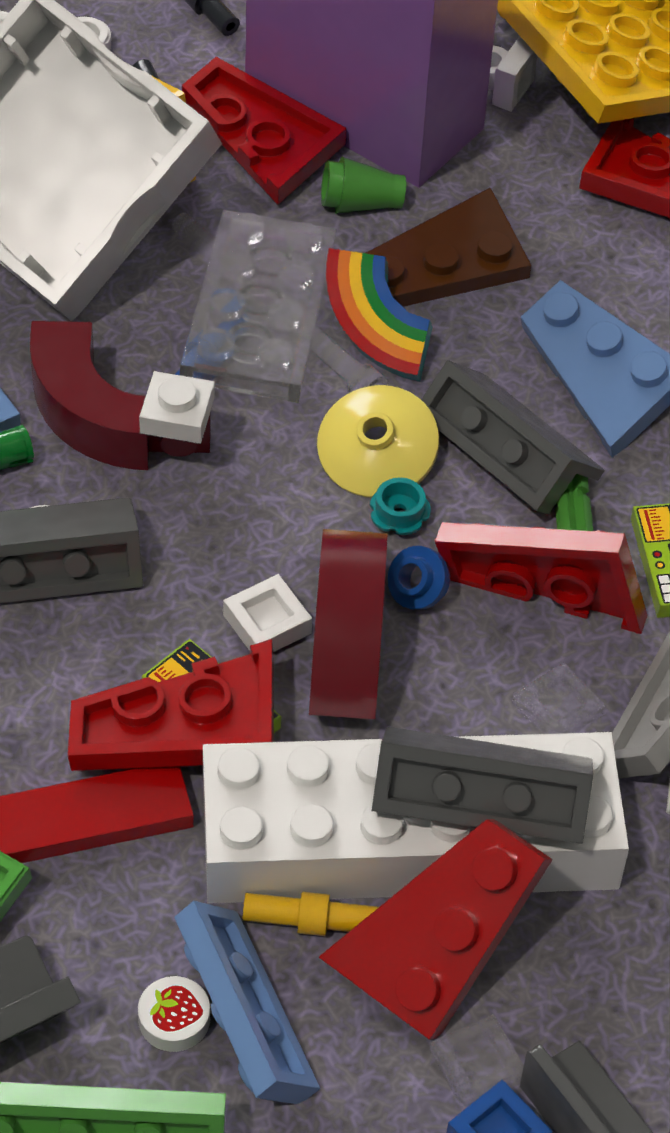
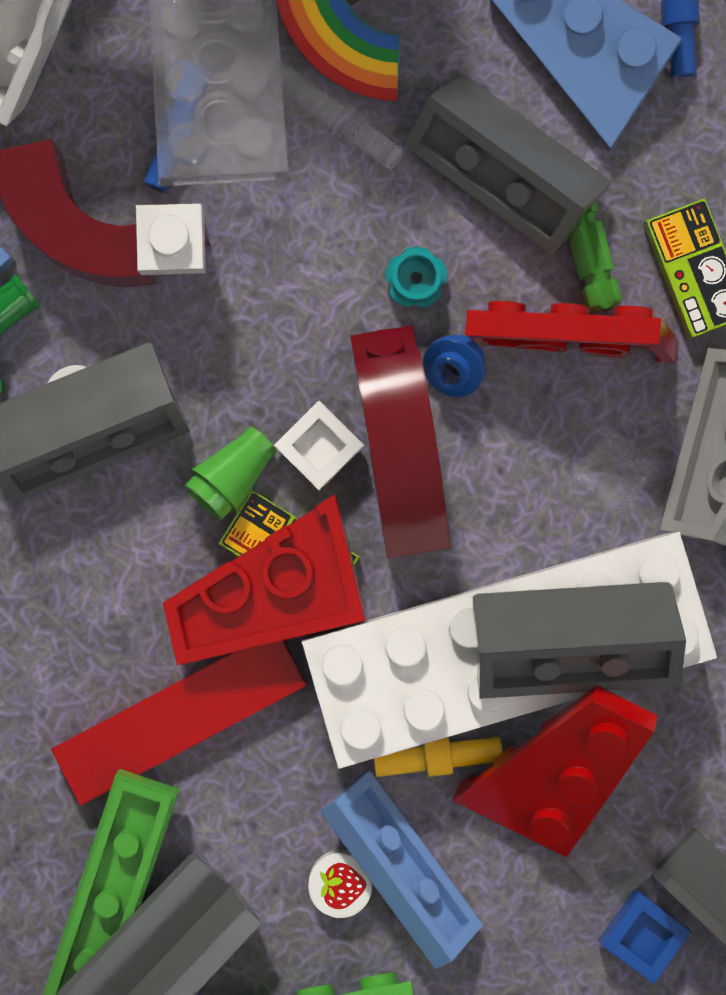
camera: 10 degrees left, 35 degrees up
(167, 621) = (228, 475): none -> bright green cone
(365, 463) = (384, 166): light yellow dish -> none

